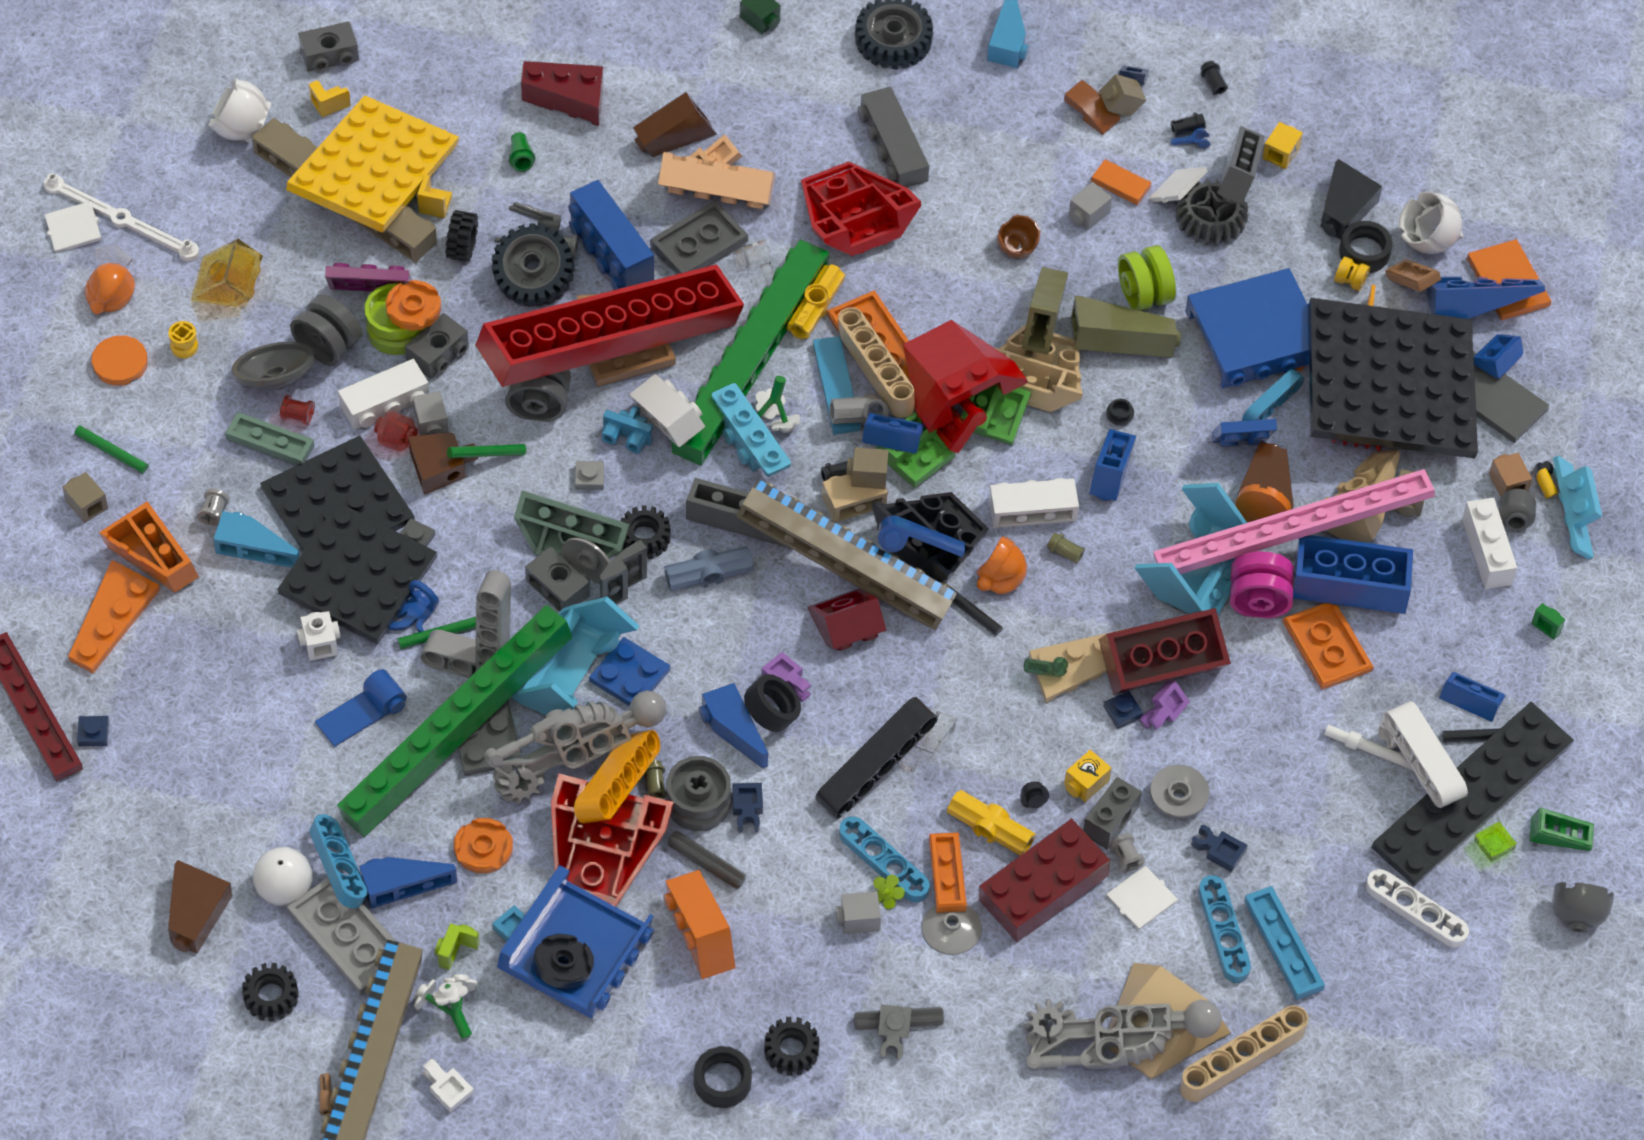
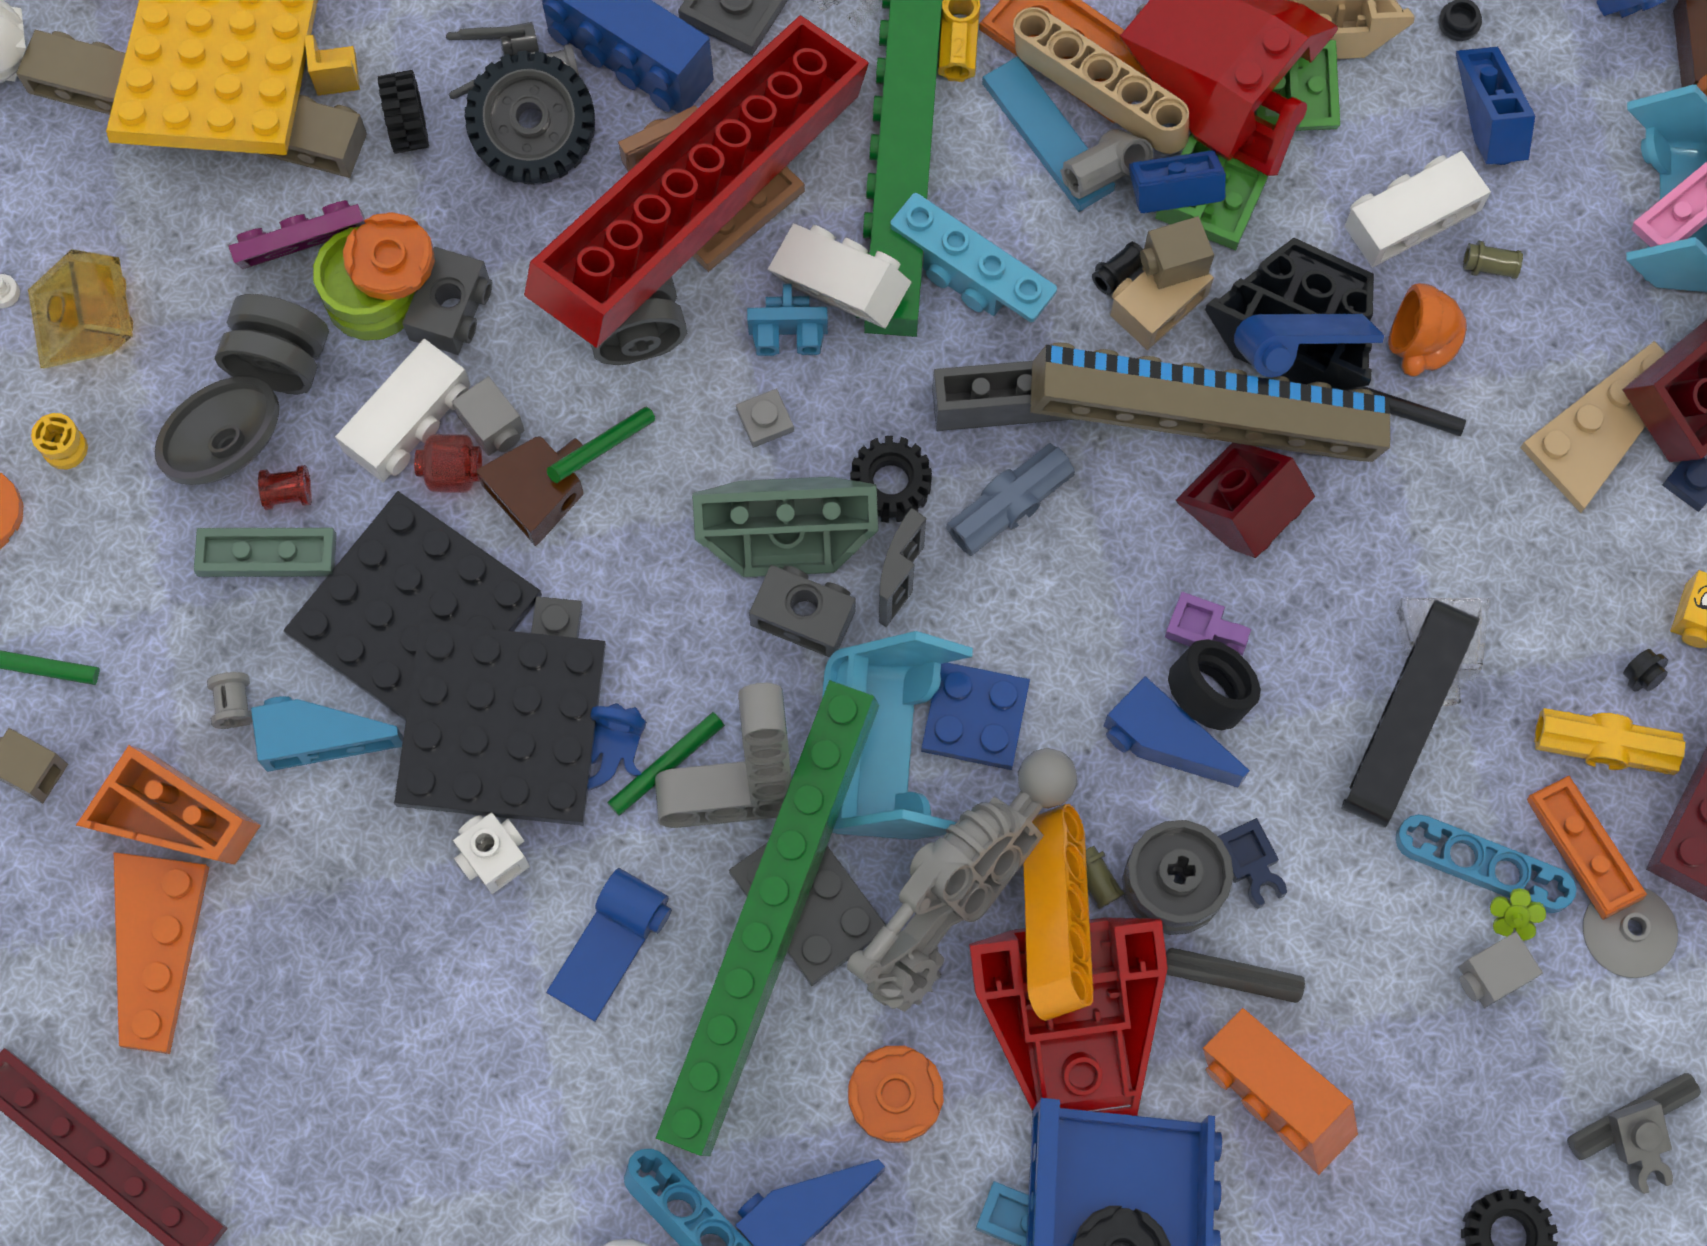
camera: 20 degrees left, 15 degrees up
(93, 731) = (214, 1155): dark blue plate -> none
(585, 557) = (836, 562): light grey dish -> none
(771, 404) = (976, 198): plant -> none
(1054, 669) = (1566, 465): clear green arm -> none

